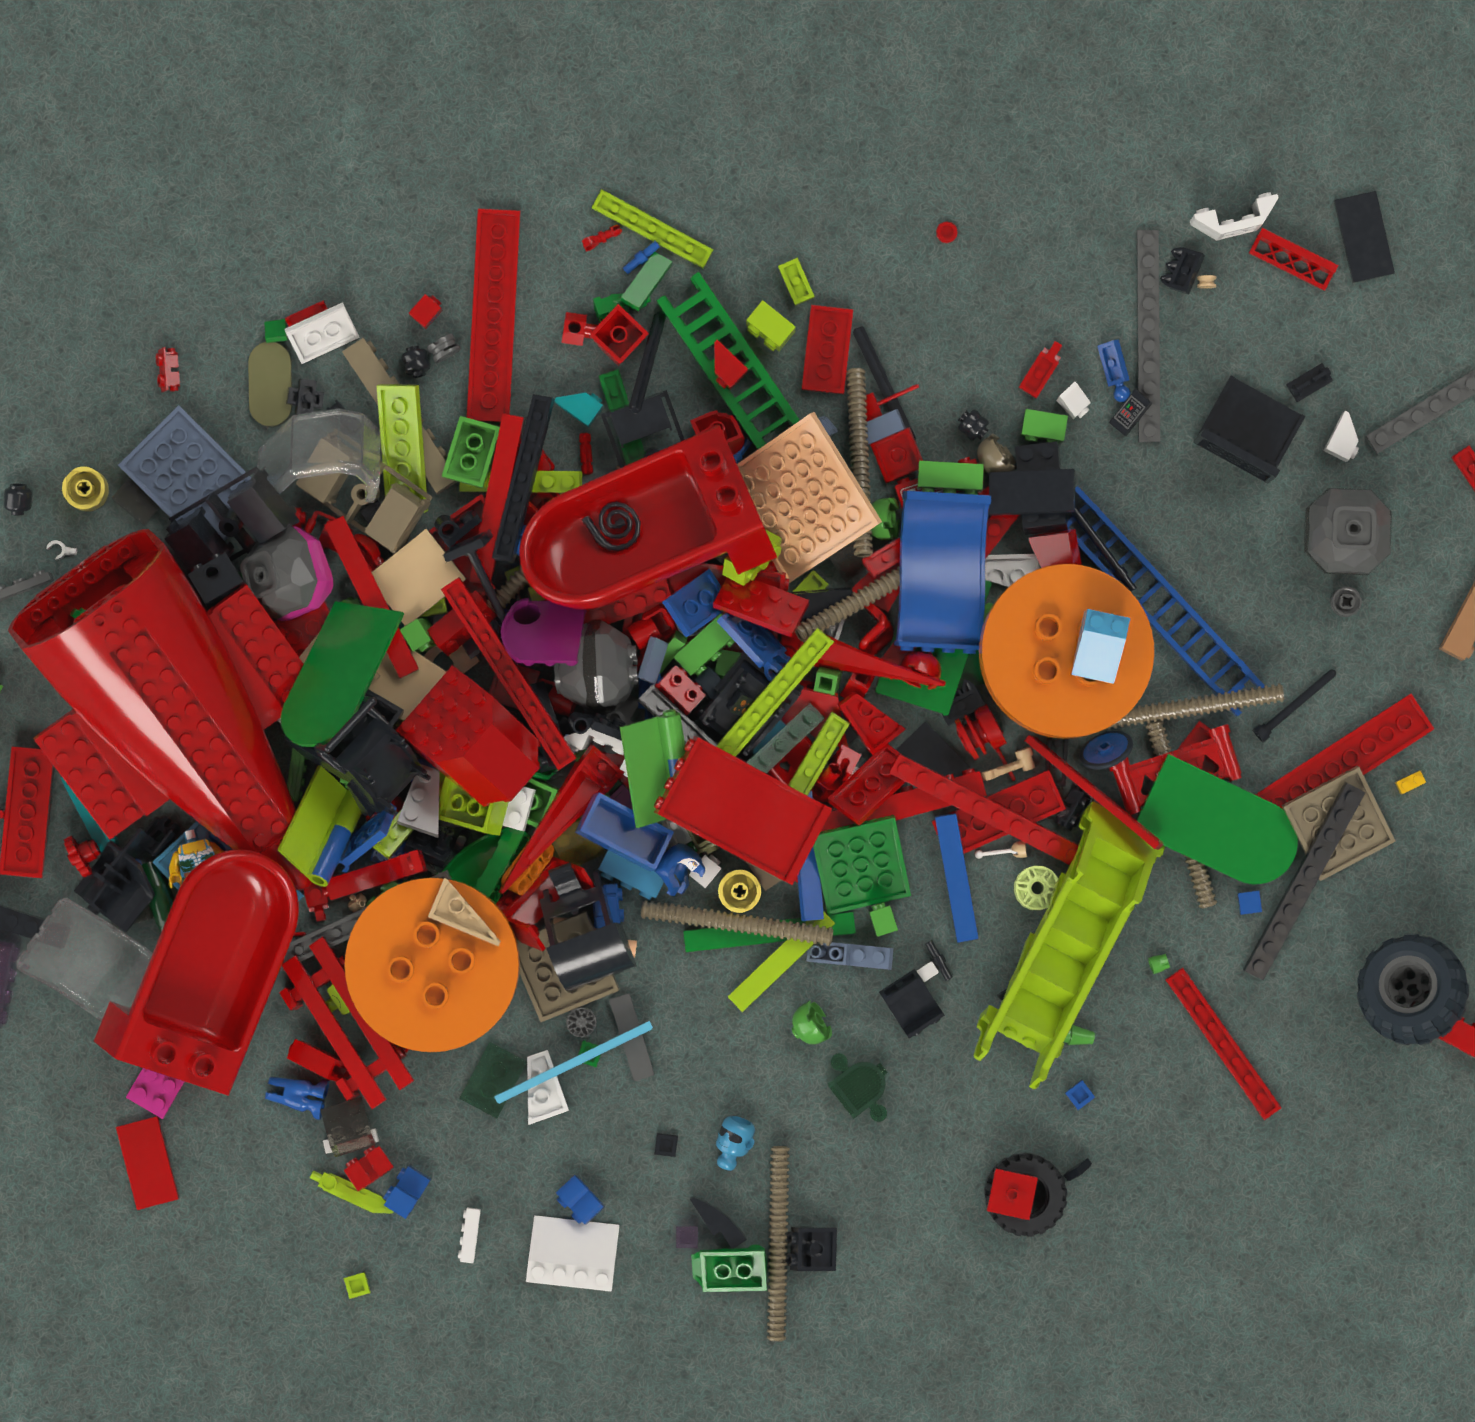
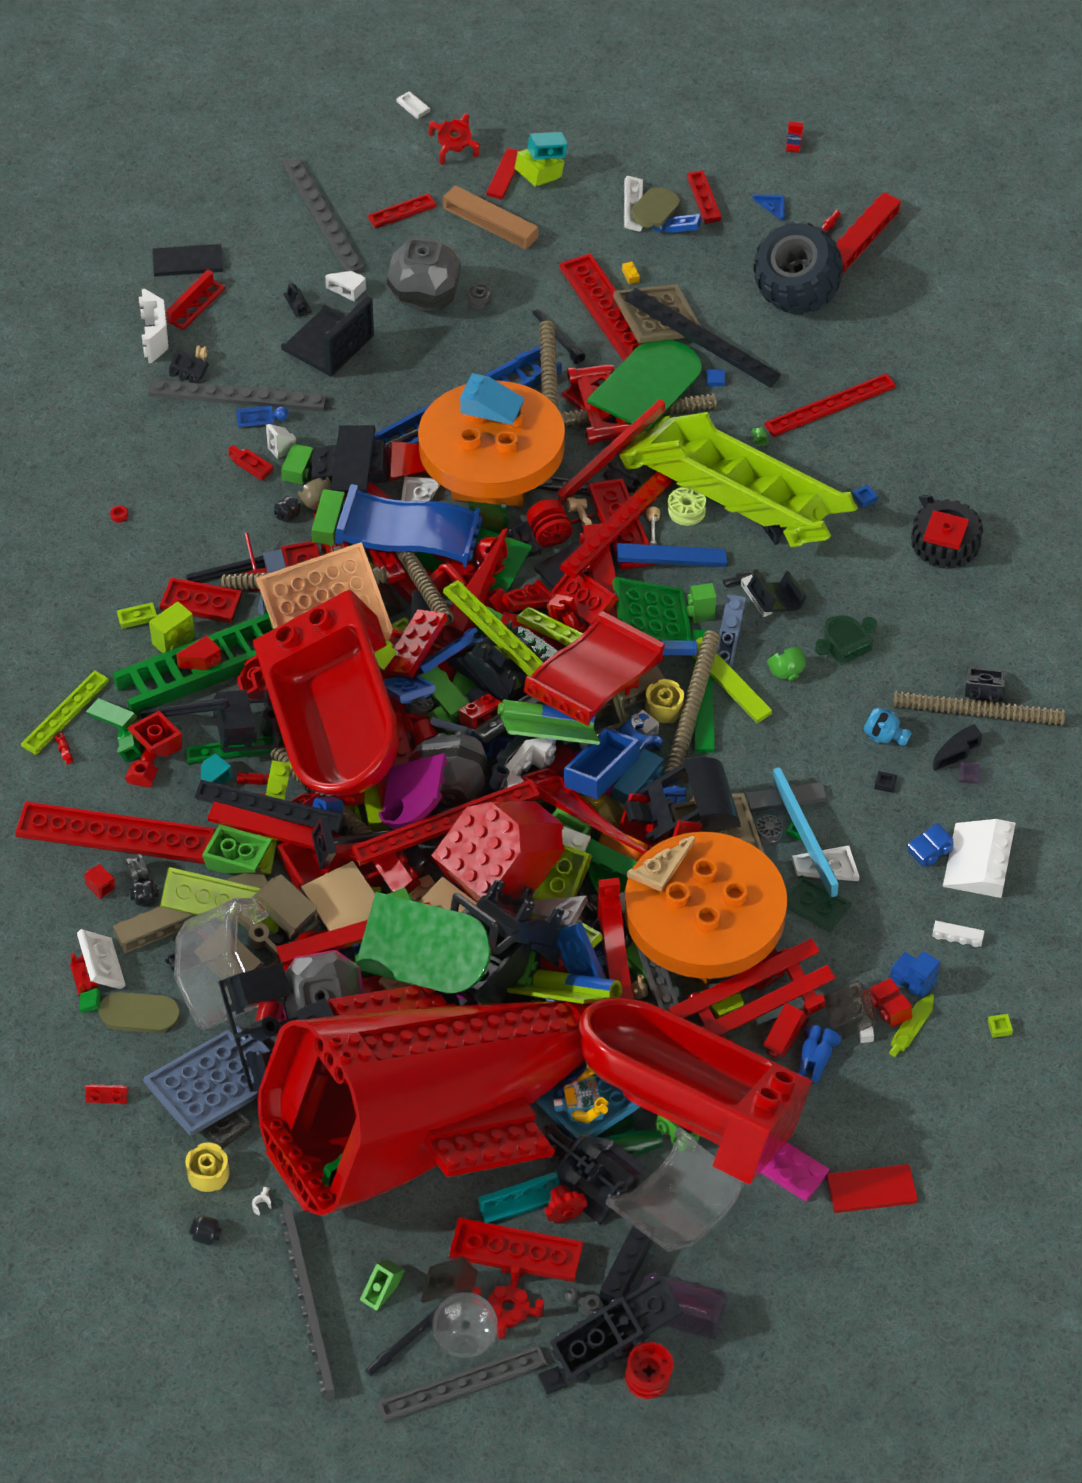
camera: 85 degrees left, 35 degrees down
(306, 397) = (159, 978): black piece -> none
(458, 529) = (306, 865): black plate -> none
(600, 540) = (325, 733): black piece -> none
(641, 257) = (88, 720): blue bar -> none
(731, 1269) = (1000, 740): green slope -> none
(1106, 750) = (578, 444): blue wheel -> none
(1130, 412) = (298, 408): black tile -> none

